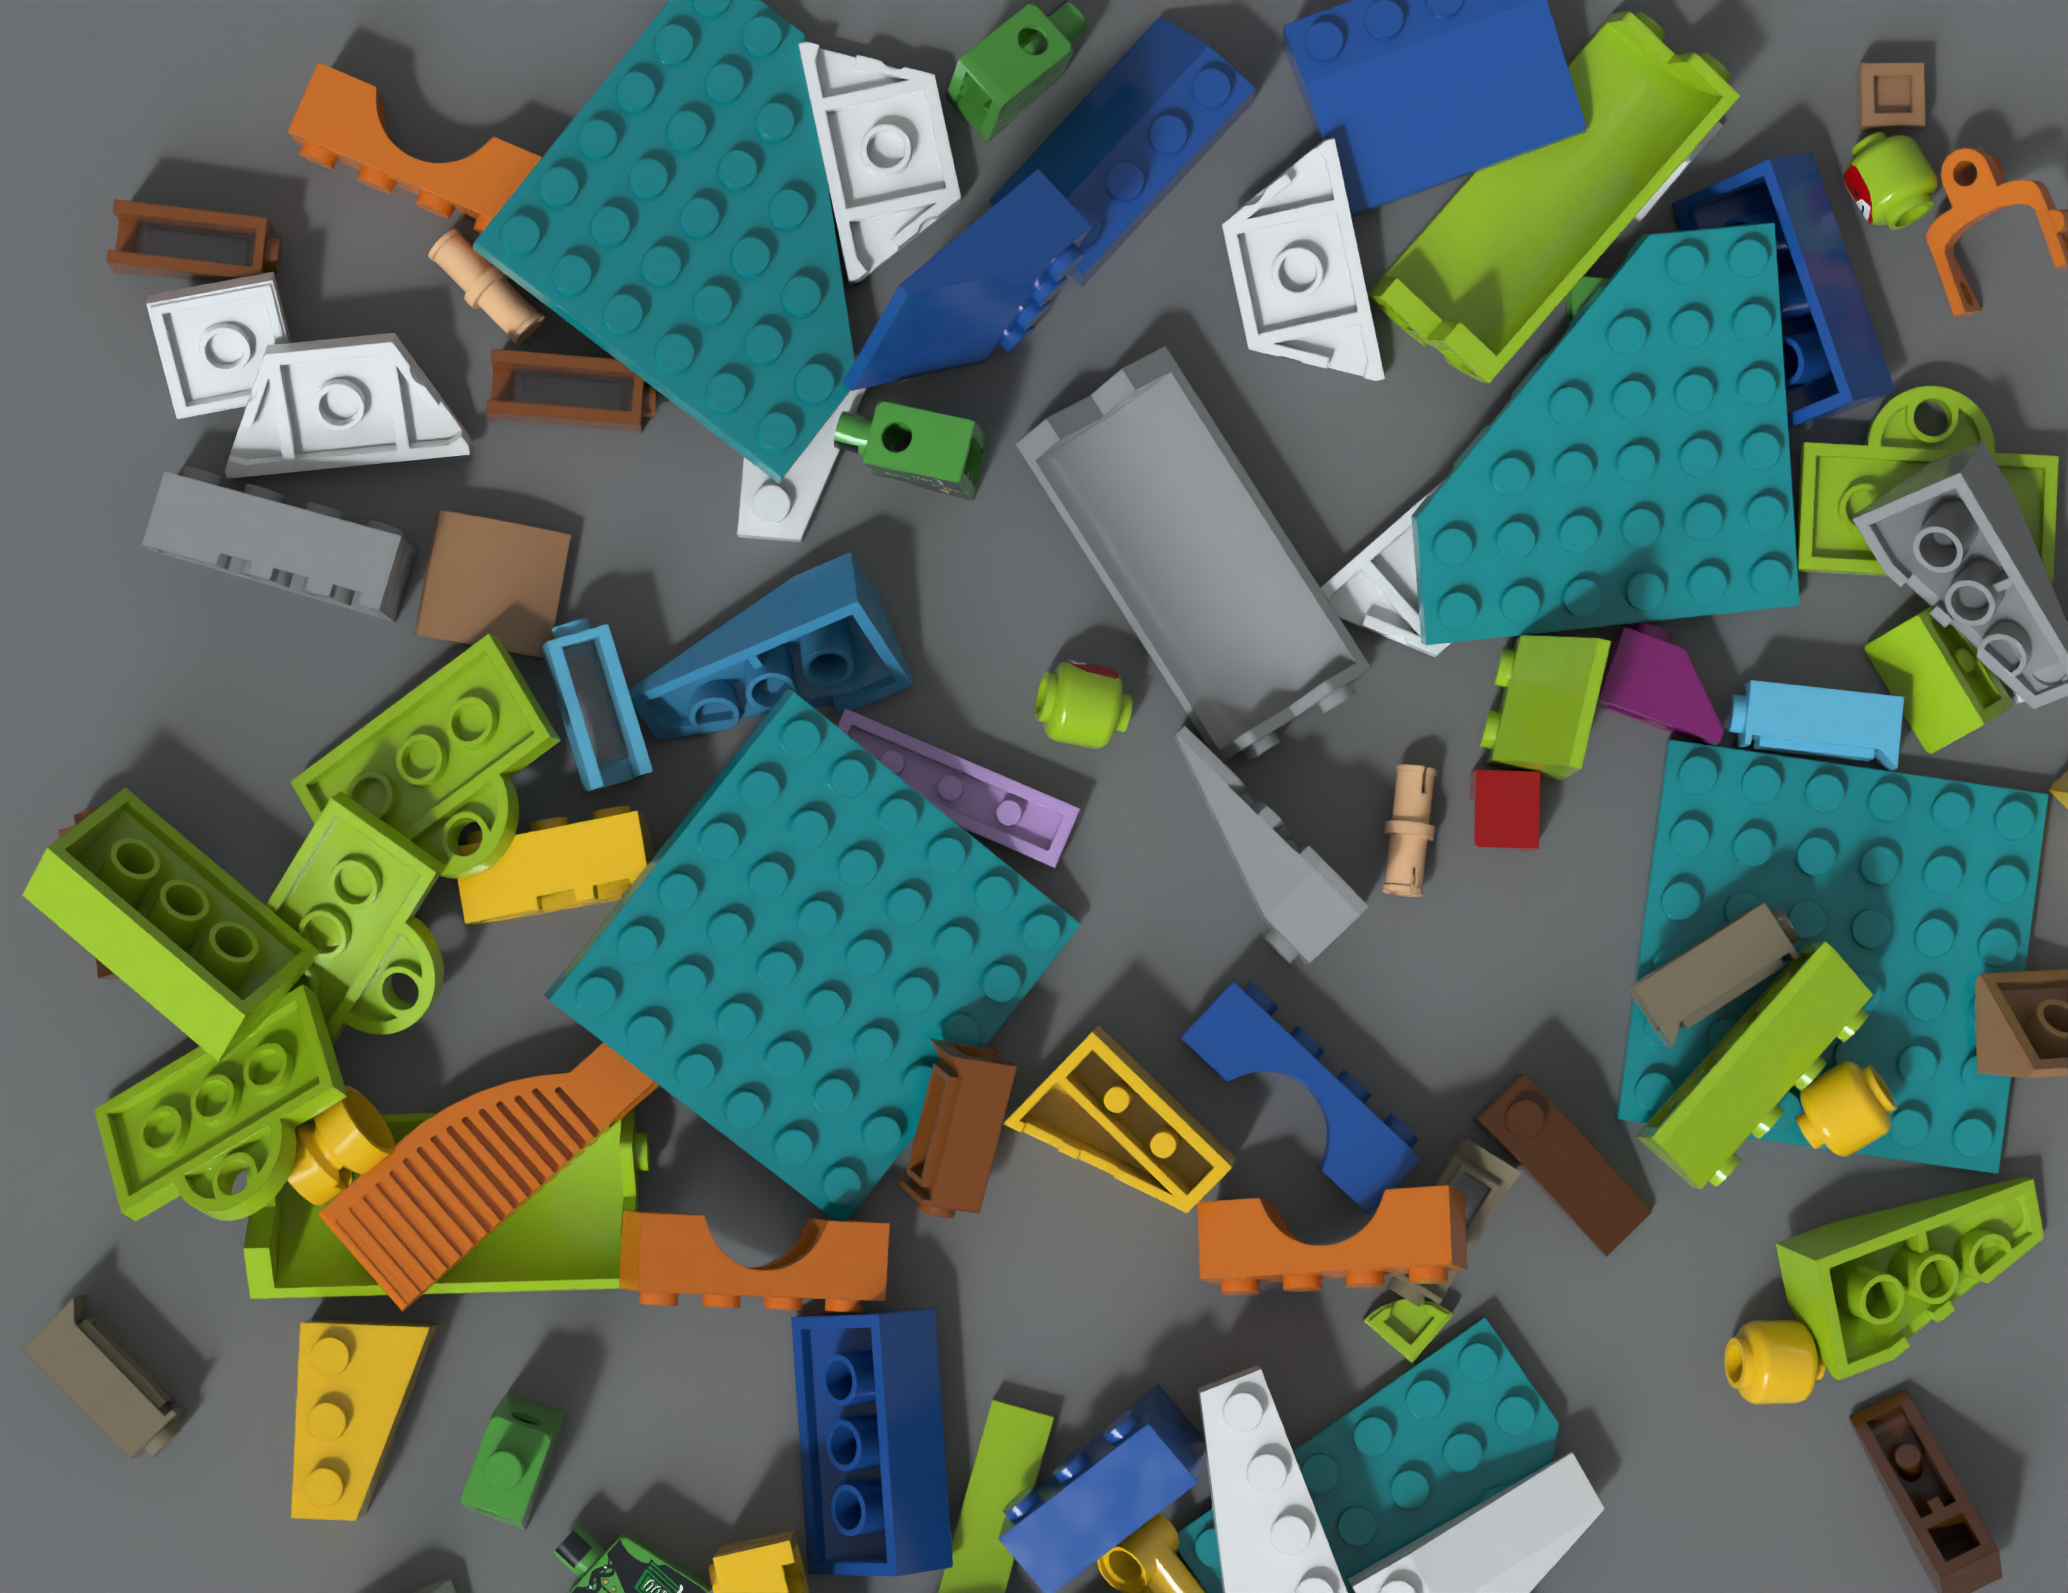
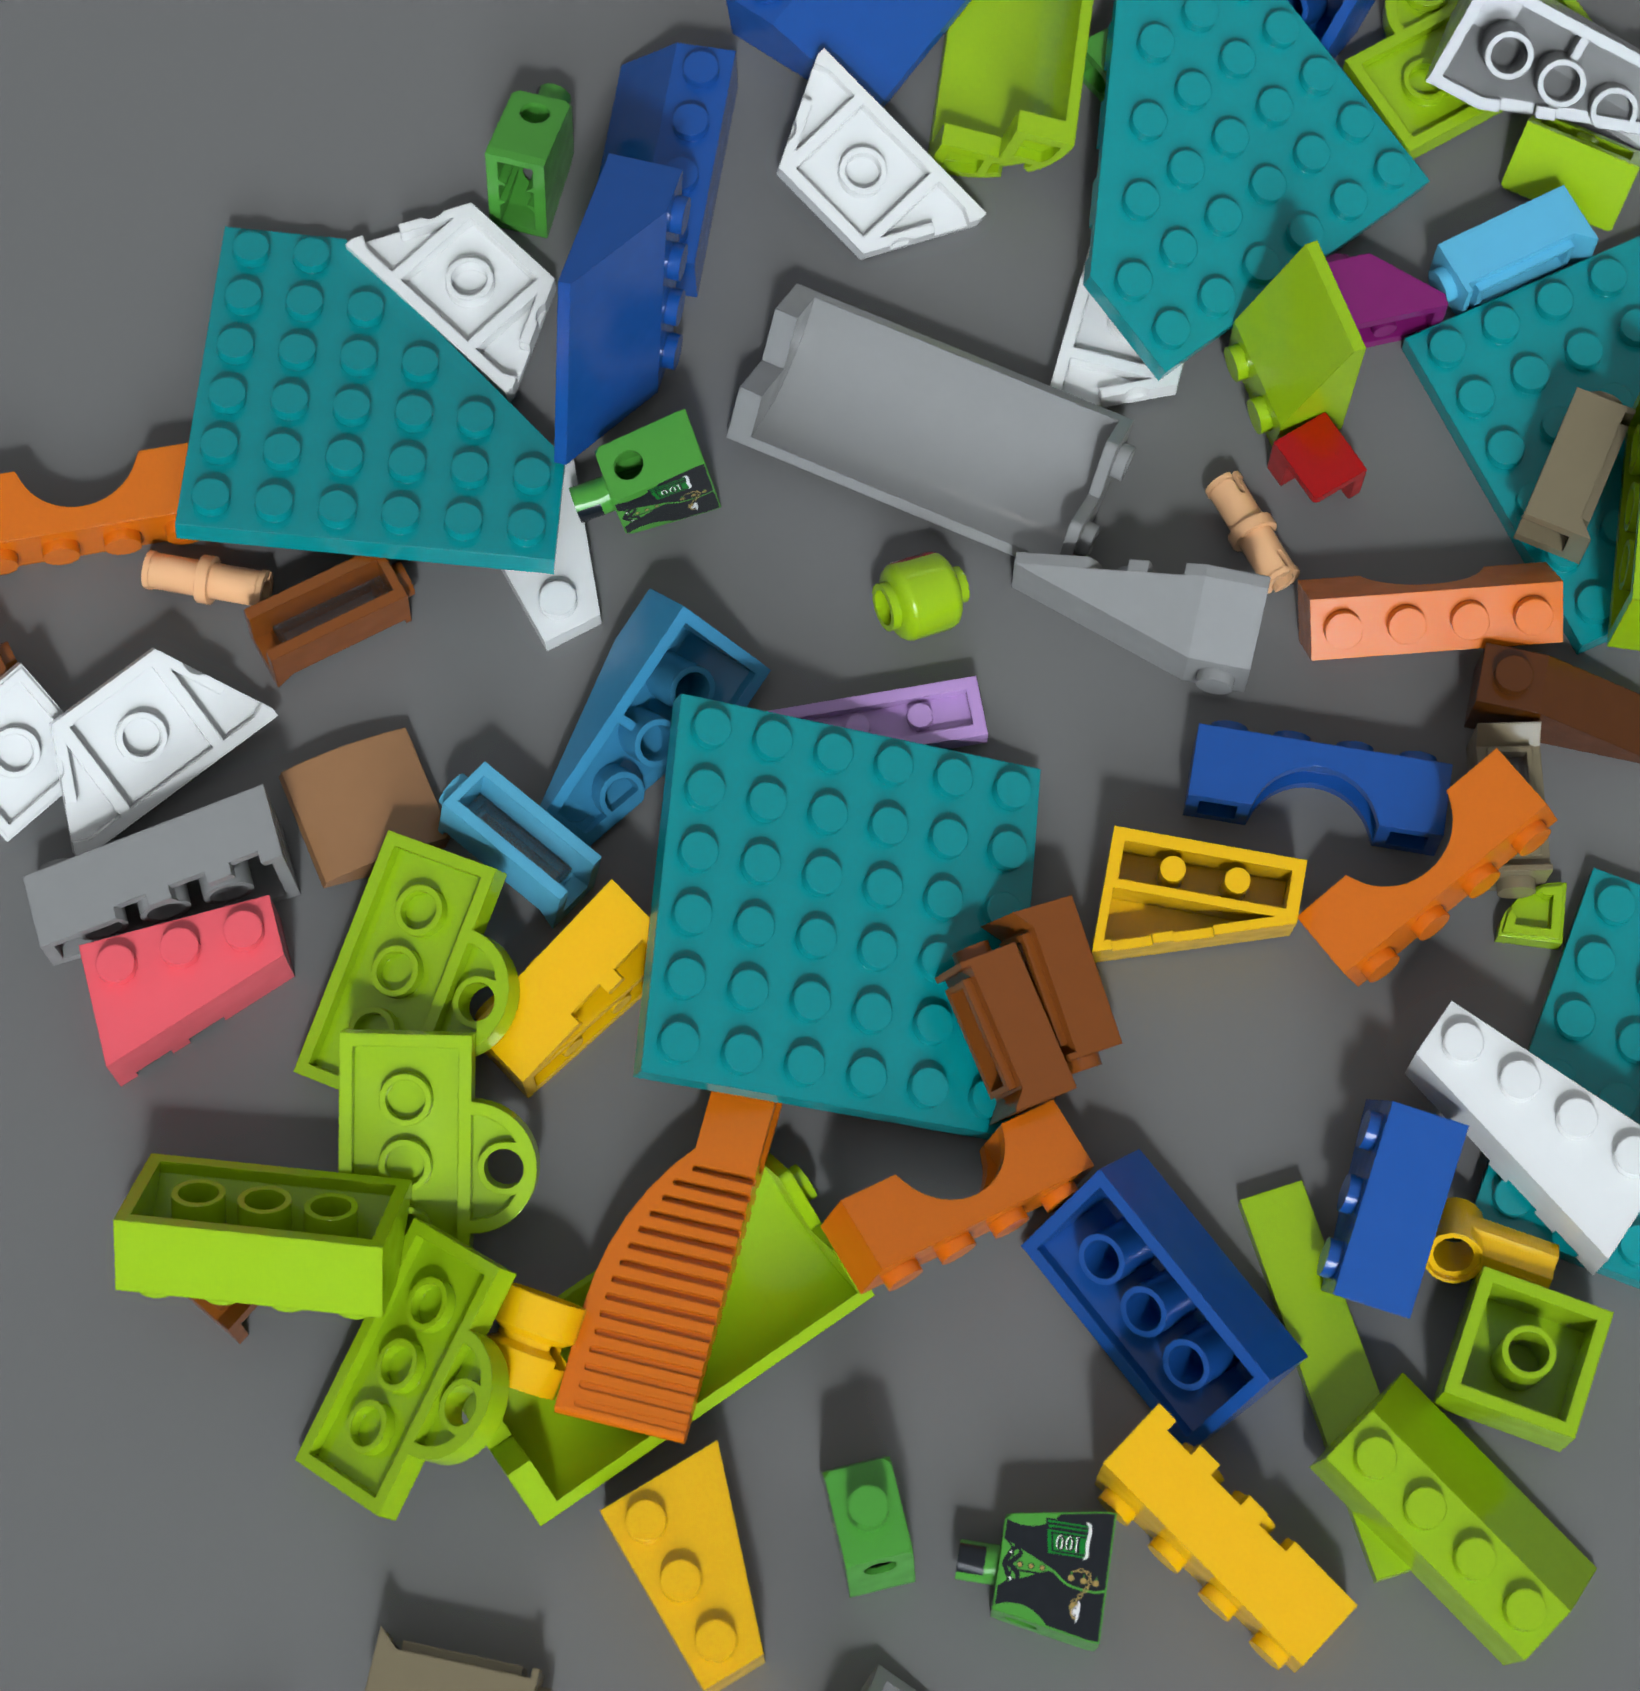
camera: 30 degrees left, 15 degrees down
(242, 642) = (179, 978): none -> coral wedge
(885, 1144) = (1006, 1029): none -> dark orange window
(1564, 1046) = (1379, 618): none -> orange arch

